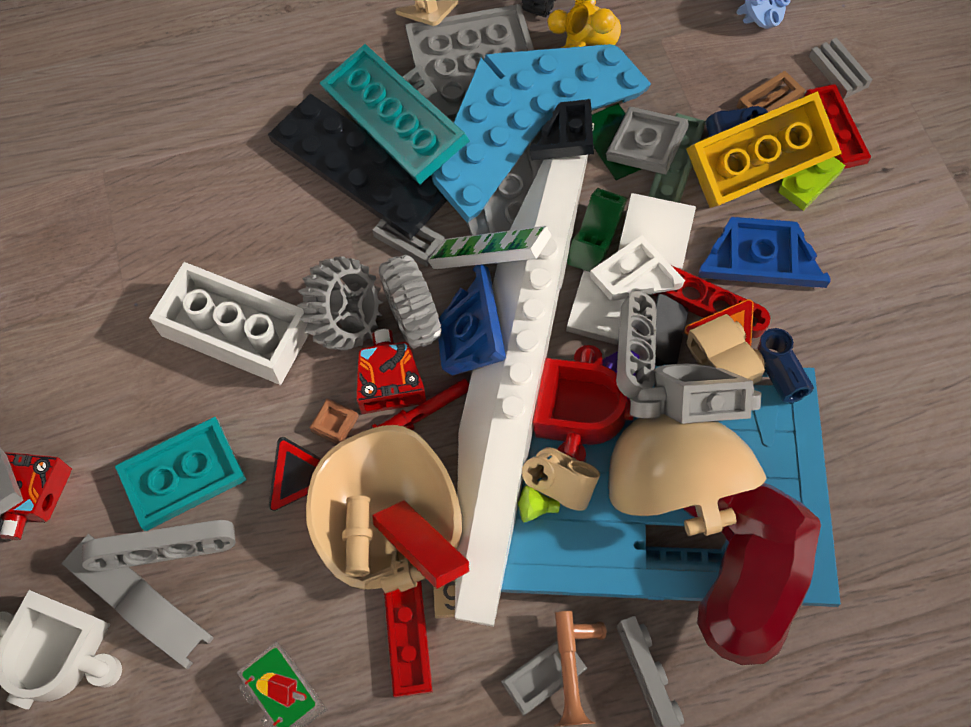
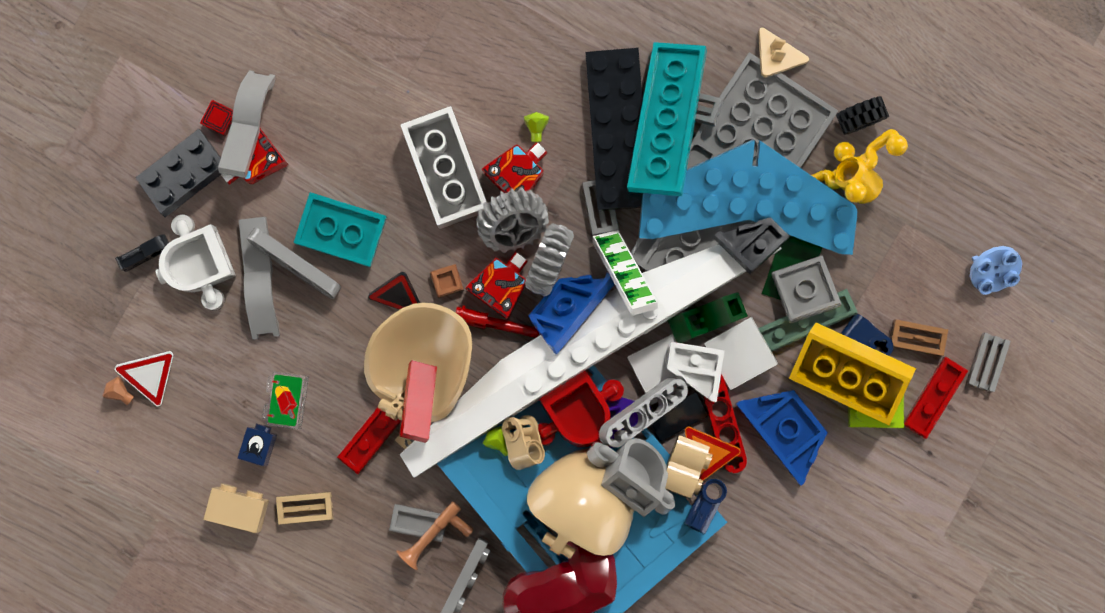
camera: 45 degrees right, 20 degrees up
(282, 222) = (536, 123): none -> lime rock
(293, 264) = (516, 168): none -> torso
(357, 536) = (393, 363): tan pin -> none

